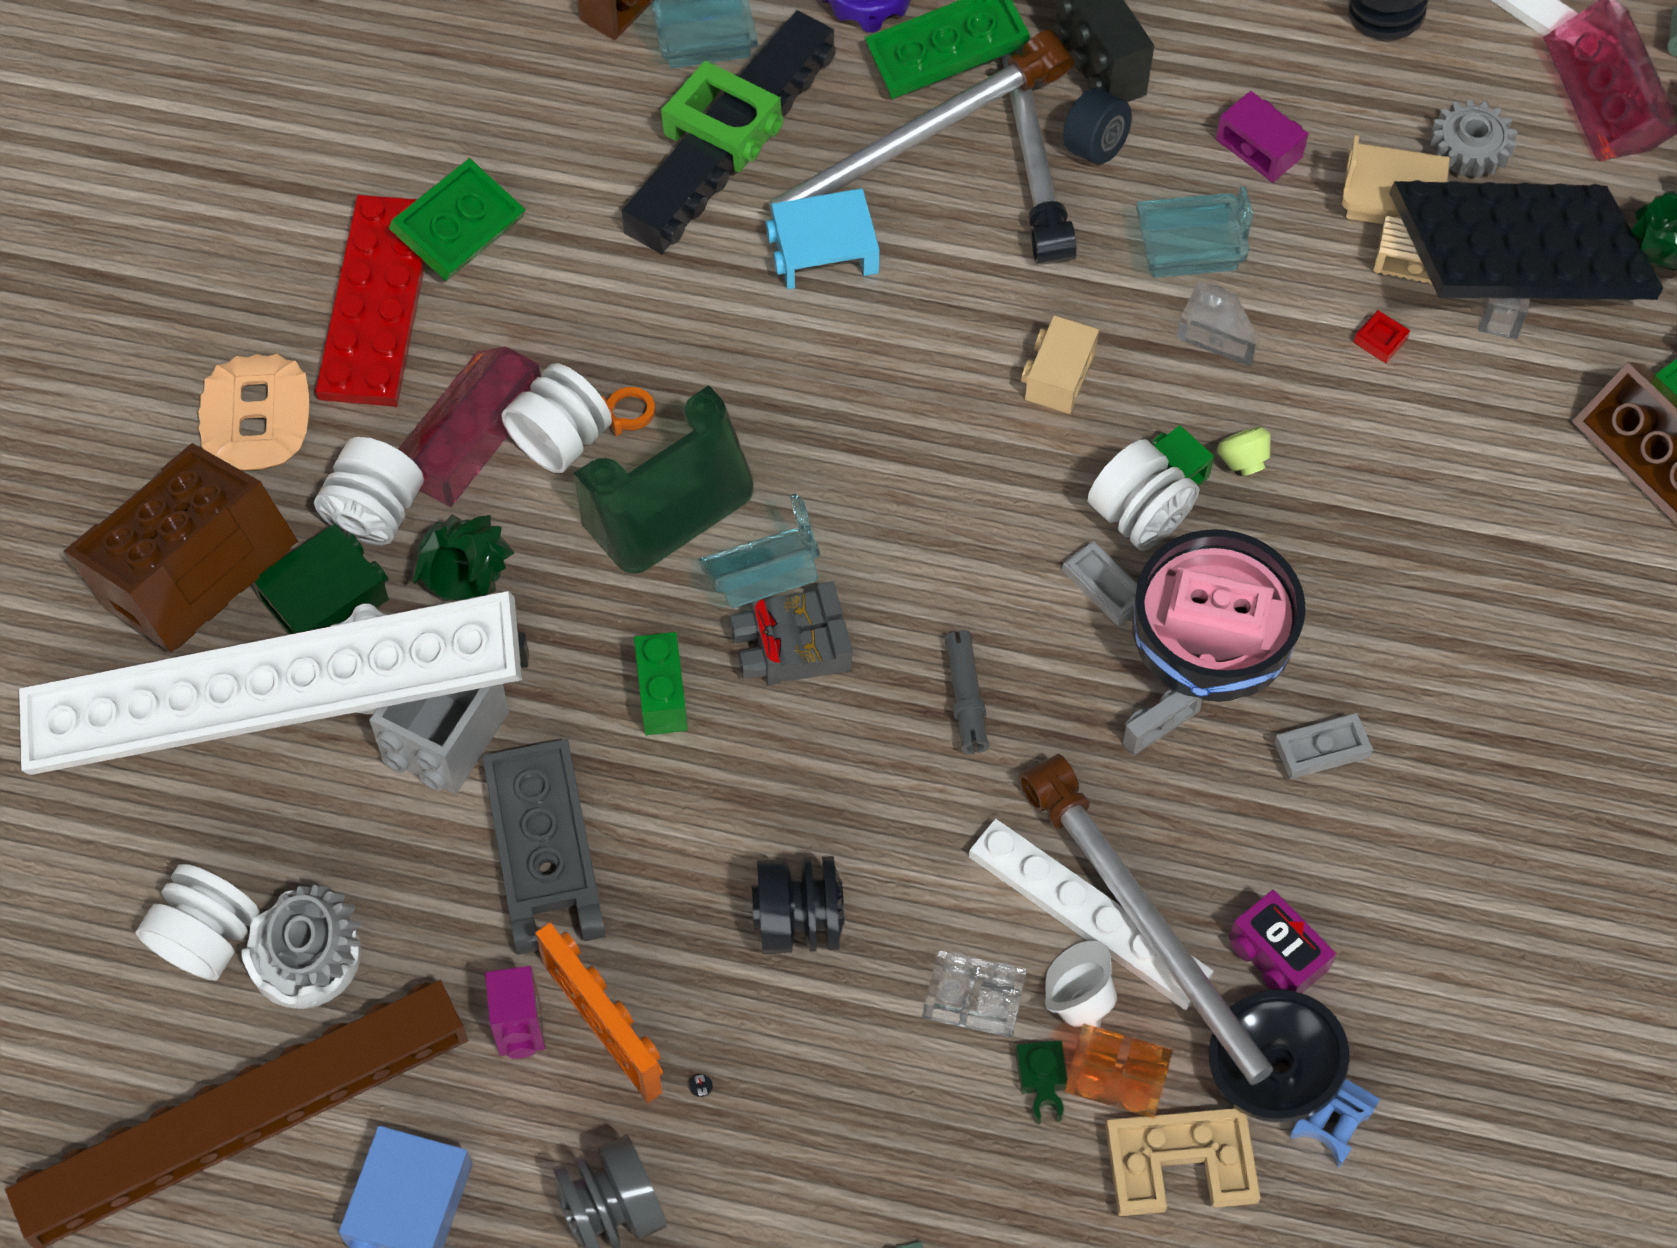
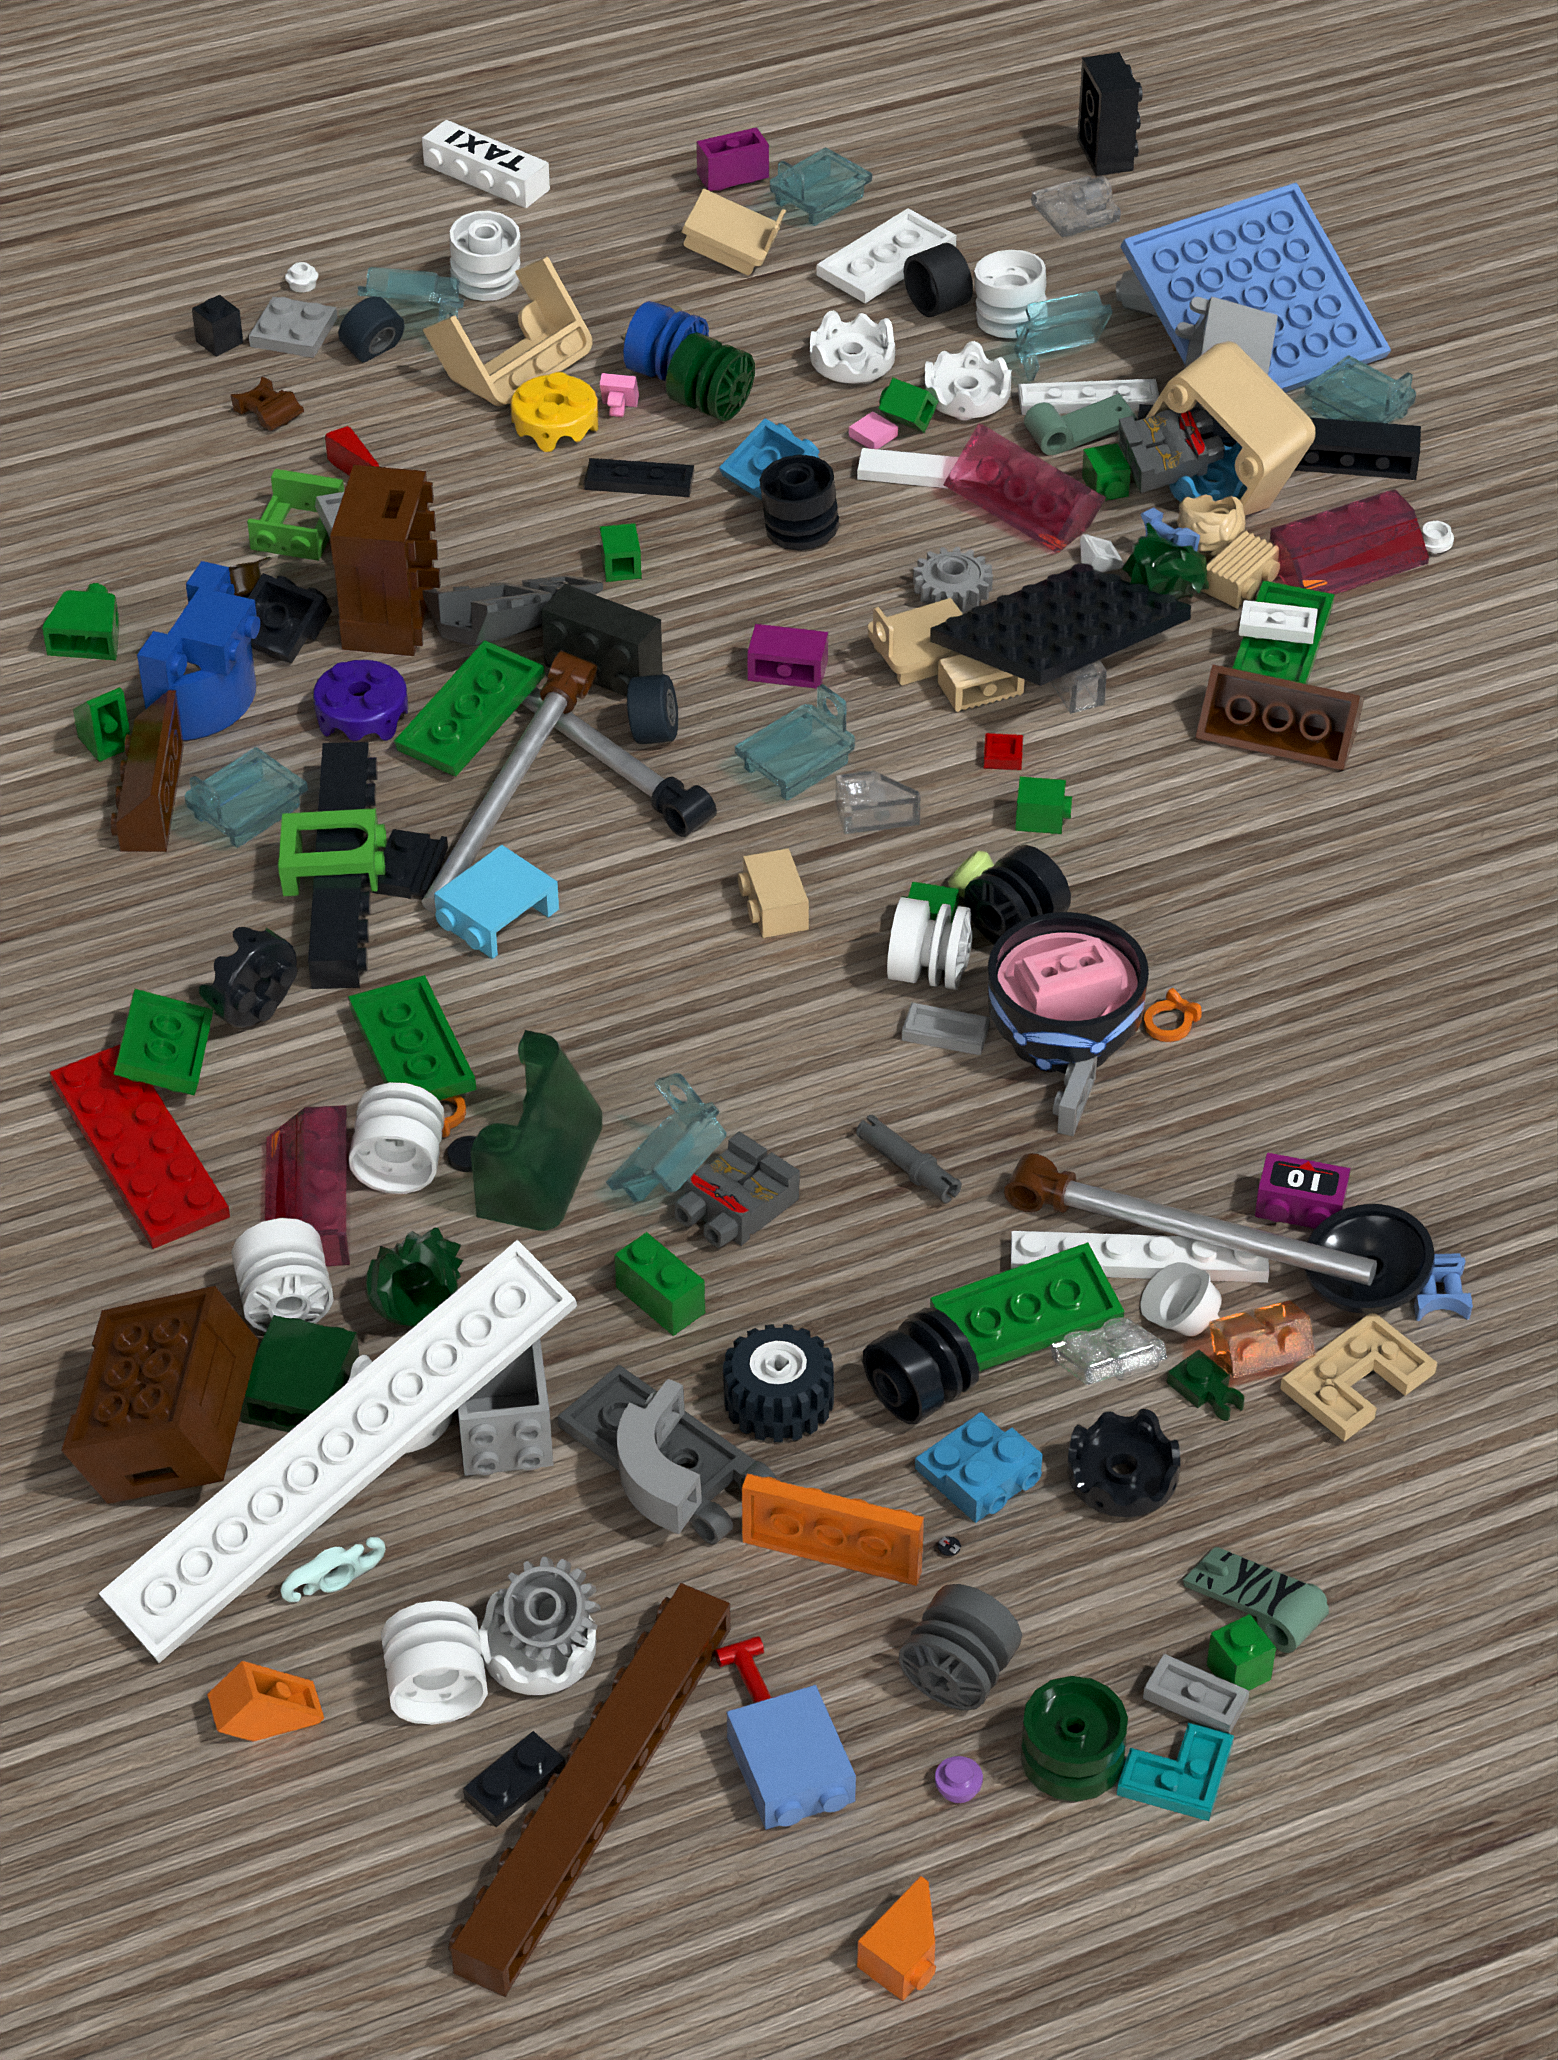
camera: 35 degrees left, 15 degrees down
(63, 867) = (263, 1703): none -> orange slope
(193, 1062) = (514, 1778): none -> black plate
(207, 780) = (316, 1572): none -> light aqua piece
(284, 410) = (80, 1299): light nougat piece -> none
(451, 1071) = (742, 1655): none -> red piece
(499, 841) = (650, 1480): none -> light grey arch
(515, 1012) = (763, 1568): magenta brick -> none
(561, 202) = (252, 979): none -> black plate
(623, 454) = (460, 1153): none -> black piece
(650, 333) = (412, 1038): none -> green plate
(678, 840) = (778, 1382): none -> black wheel
(785, 1028) = (981, 1466): none -> dark azure plate
(789, 160) = (411, 863): none -> black plate
(906, 1081) = (1126, 1441): none -> black plate
(942, 904) = (1031, 1305): none -> green plate
(1260, 494) = (1016, 889): none -> black wheel
(1323, 746) = (1212, 1046): light grey plate -> none
(1329, 679) = (1191, 1010): none -> orange piece
(1366, 412) = (1042, 805): none -> green brick
(1634, 184) = (1099, 554): none -> white slope

